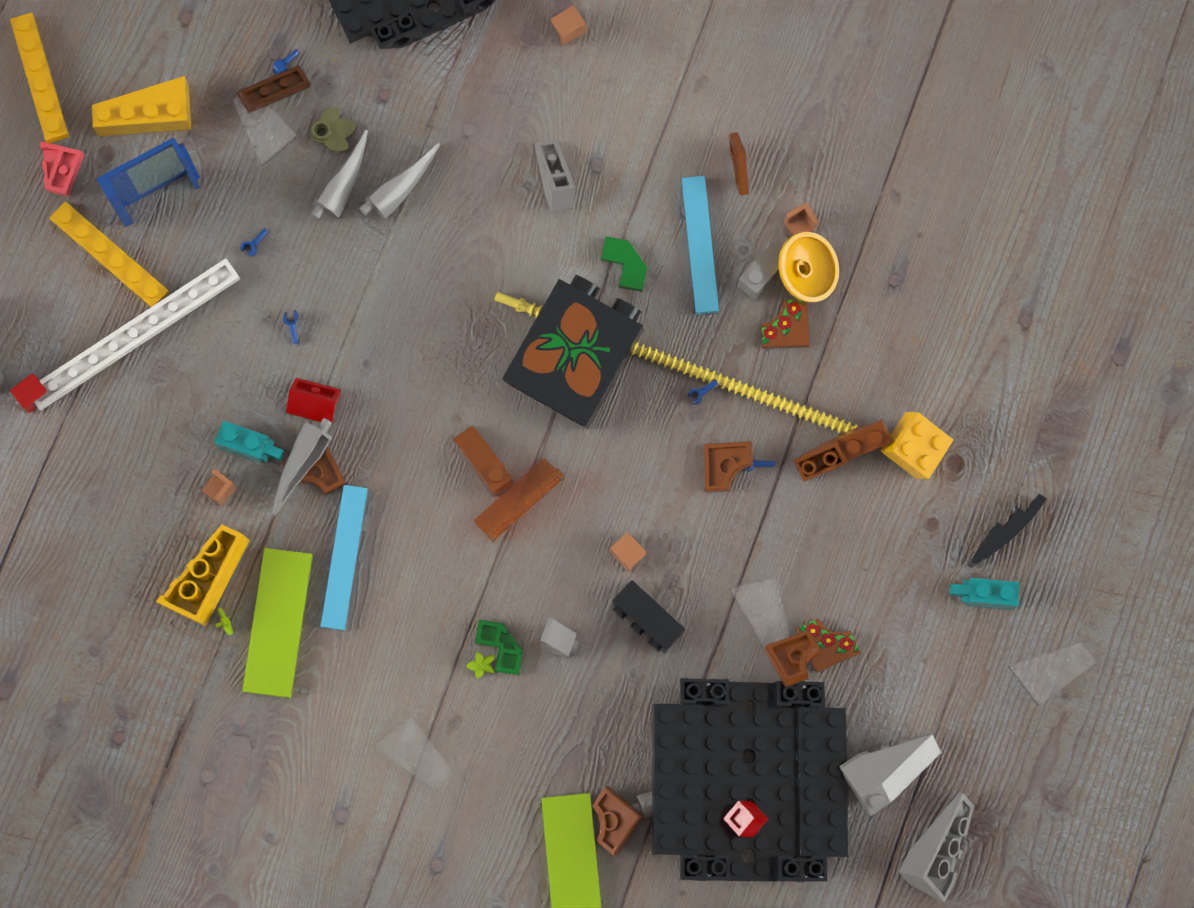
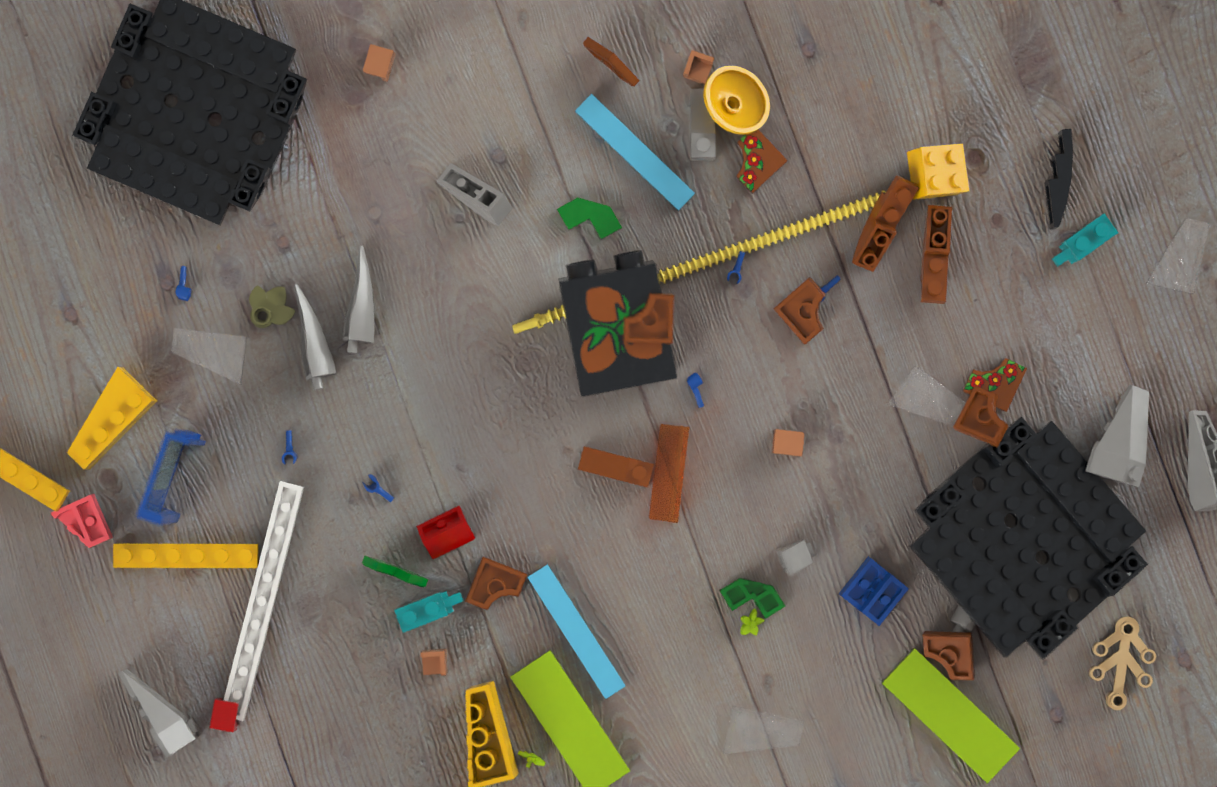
camera: 30 degrees left, 10 degrees up
(249, 394) = (398, 572): none -> green tile
(273, 89) = (194, 314): reddish brown tile -> none
(304, 454) = (476, 577): light grey piece -> none
(596, 448) = (695, 381): none -> blue hand
(596, 722) = (873, 591): none -> blue slope
(602, 367) = (653, 322): none -> dark orange tile
(647, 617) = (845, 480): black brick -> none
(745, 818) = (1050, 571): red panel -> none
(863, 507) = (935, 254): none -> dark orange slope

